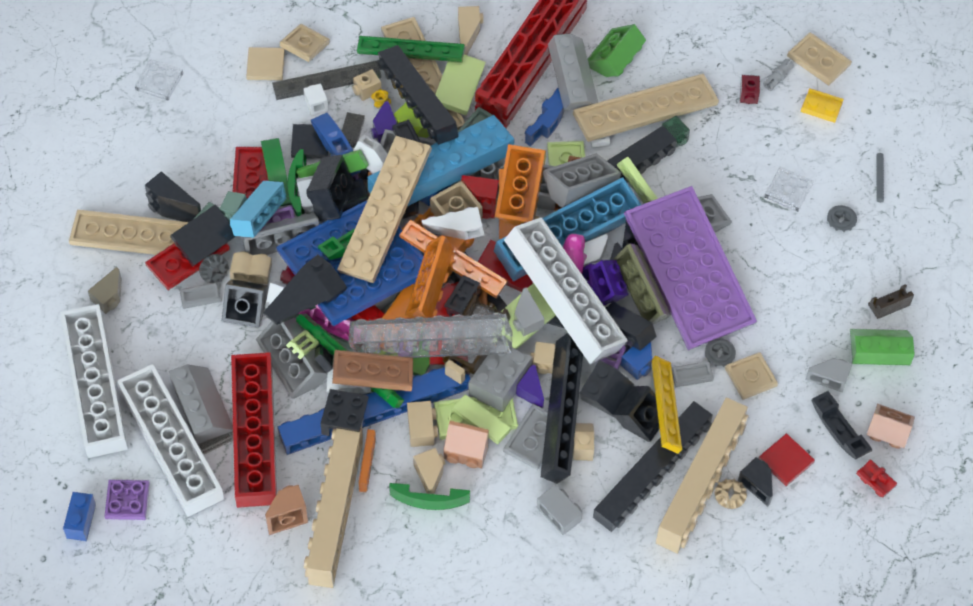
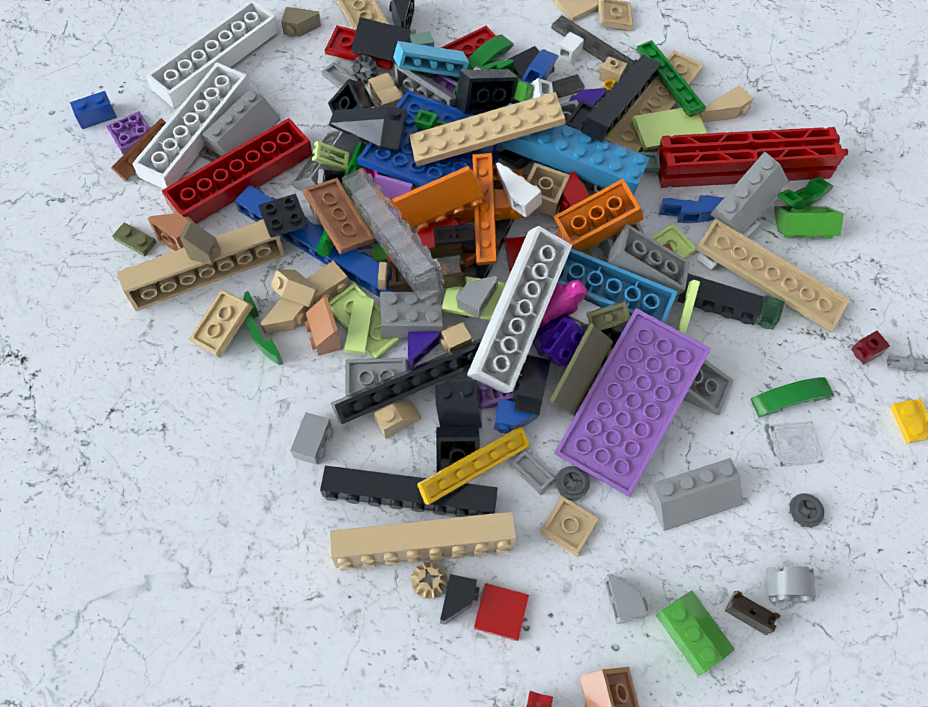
camera: 55 degrees right, 5 degrees up
(160, 497) = (124, 166): none -> dark orange tile
(256, 552) = (134, 239): none -> olive plate
(337, 483) = (199, 243): none -> dark tan slope
(367, 460) = (264, 265): orange tile -> none
(384, 310) = (393, 187): none -> medium lavender slope
(404, 521) = (220, 323): none -> tan tile
(415, 444) = (294, 287): none -> tan slope
(592, 33) = (808, 195): none -> green slope
(609, 237) = (609, 315): none -> olive plate
(750, 166) = (791, 395): none -> green slope
(784, 278) = (696, 494): none -> light grey slope
(839, 427) = (572, 645): black slope -> none
(880, 177) = (882, 521): dark grey bar -> none
(889, 263) = (790, 584): none -> light grey brick

